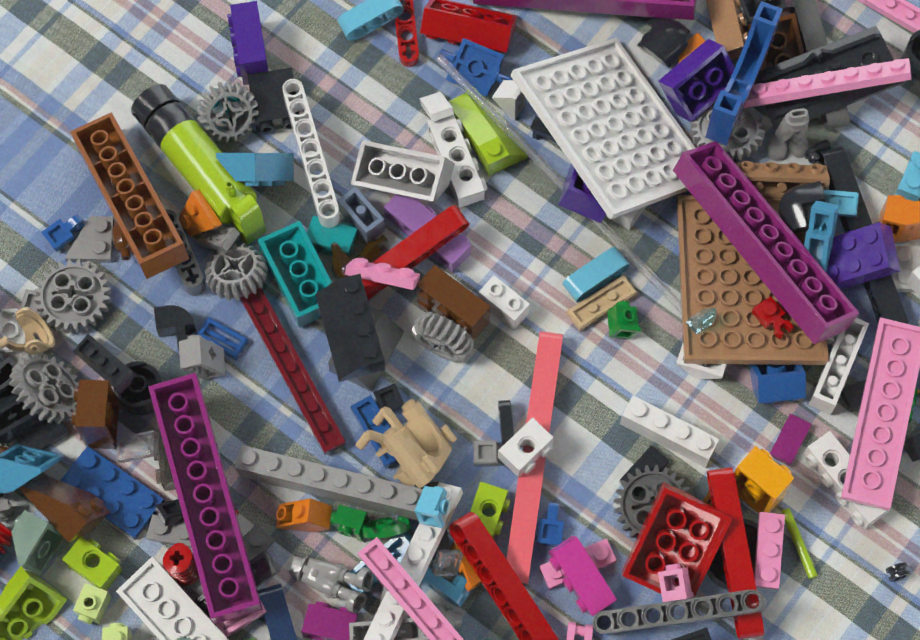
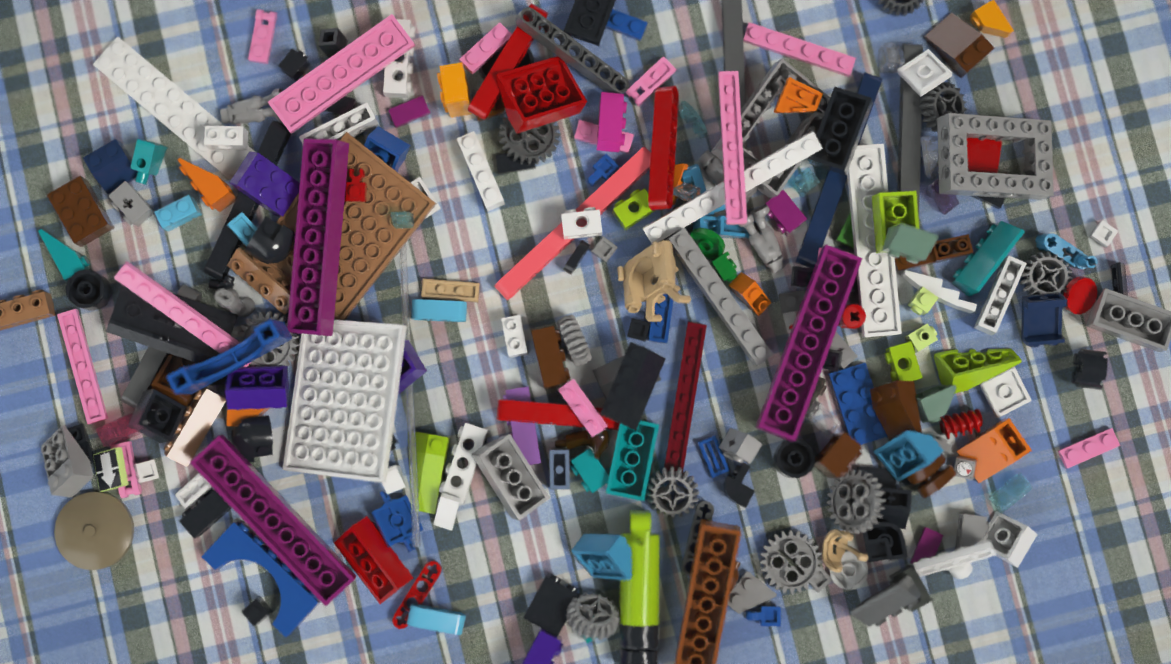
camera: 140 degrees left, 15 degrees up
(104, 363) = (807, 489): black plate -> none
(198, 215) = (669, 550): orange wing -> none
(218, 238) = (666, 527): light grey plate -> none
(311, 162) = (546, 563): white beam -> none
(432, 506) = (672, 224): medium azure brick -> none
(623, 321) = (448, 265): green brick -> none
(669, 589) = (561, 67): bright pink brick -> none
(799, 544) = (461, 41): lime bar -> none
(821, 231) = (278, 211): dark azure slope -> none

